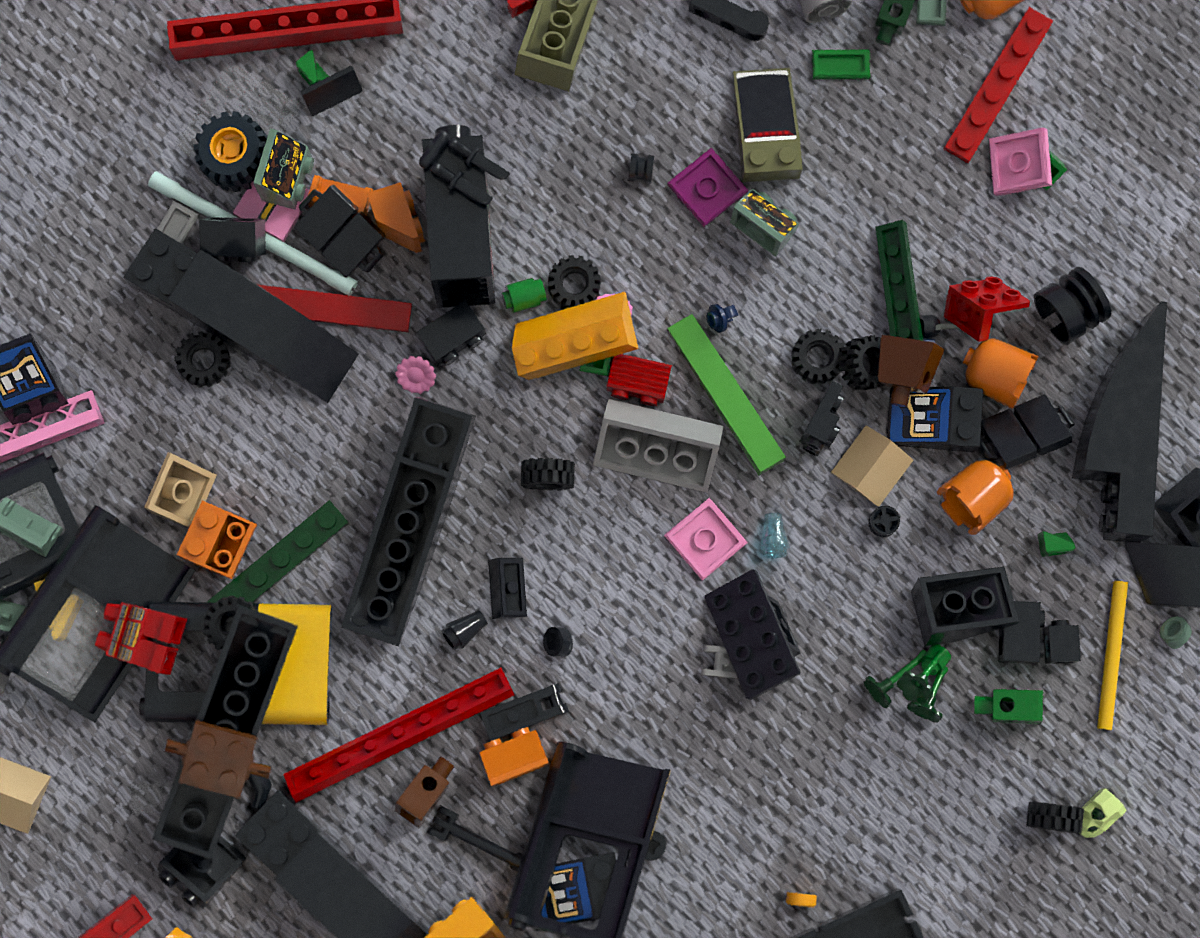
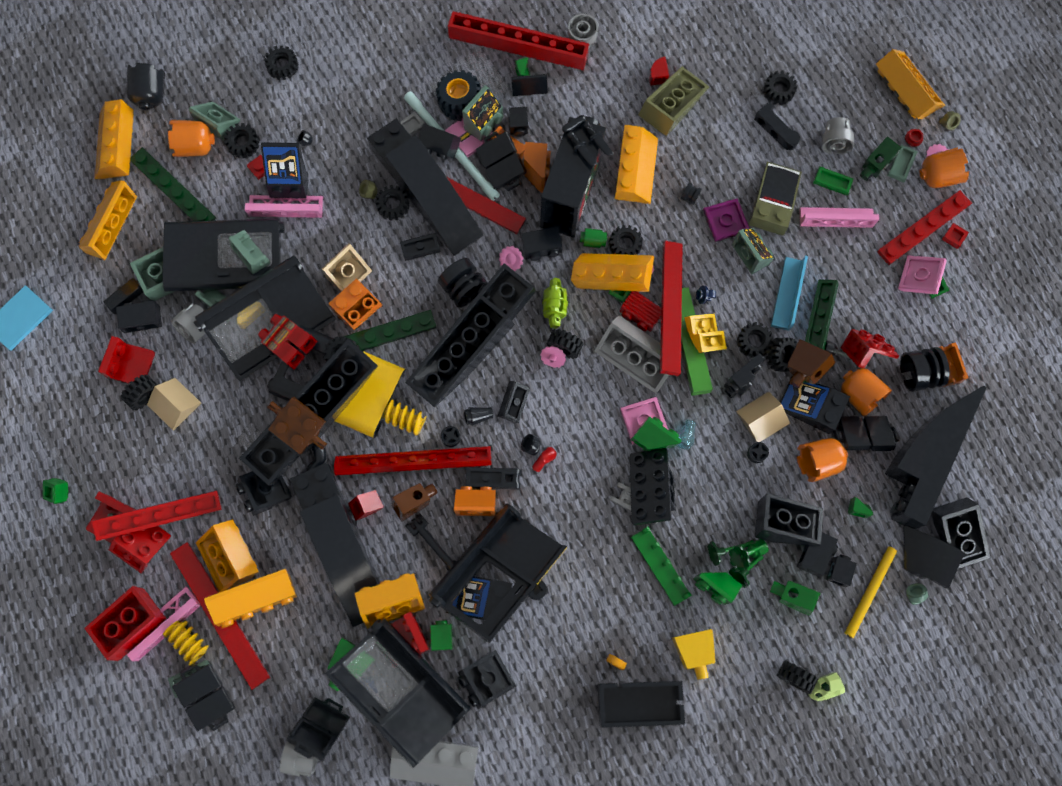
camera: 25 degrees right, 5 degrees down
(24, 310) = (304, 138): none -> black hinge
(156, 353) = (368, 189): none -> olive tile
(273, 410) = (420, 246): none -> black plate
(339, 156) = (518, 121): none -> black brick
(356, 440) = (462, 282): none -> black wheel
(358, 826) = (365, 504): none -> brick
(359, 677) = (404, 418): none -> yellow piece
(434, 671) = (452, 433): none -> black wheel
(508, 418) = (555, 303): none -> lime piece
(538, 499) = (553, 356): none -> bright pink piece
(543, 155) = (636, 165): none -> light orange slope
(587, 650) = (544, 458): none -> red arm
(680, 359) = (671, 309): none -> red tile
(727, 561) = (654, 436): none -> green slope
(743, 376) = (704, 333): none -> yellow slope
(810, 740) = (661, 566): none -> green hinge
(840, 265) = (789, 293): none -> medium azure panel
(867, 119) = (838, 217): none -> bright pink fence
(905, 733) = (723, 586): none -> green slope
(905, 838) = (696, 651): none -> yellow torso
(1047, 81) = (955, 235): none -> red plate
(1111, 279) = (956, 366): none -> orange hinge

